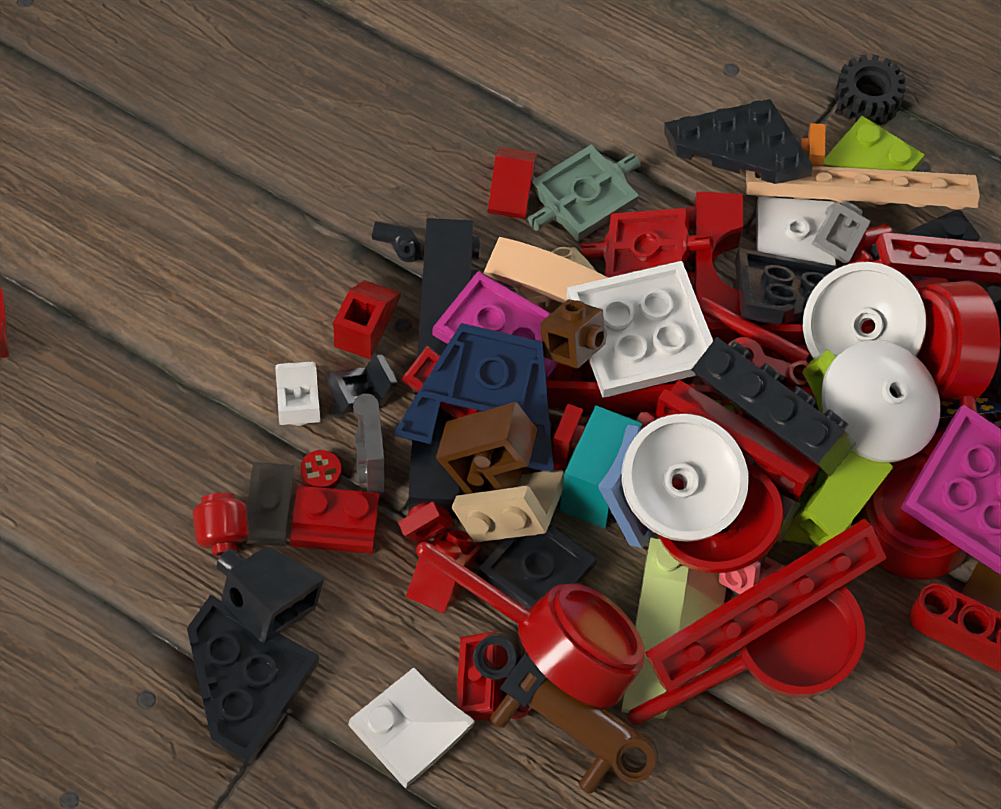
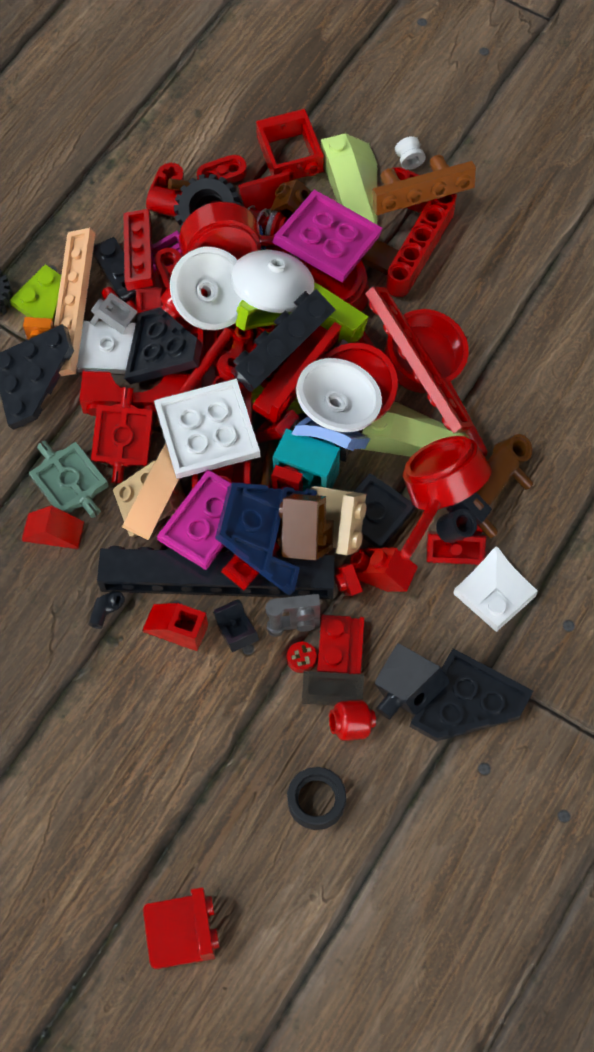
camera: 85 degrees left, 5 degrees up
(111, 452) = (316, 774): none -> black tyre
(297, 393) = (244, 672): white bracket -> none
(573, 333) = (224, 462): reddish brown brick -> none

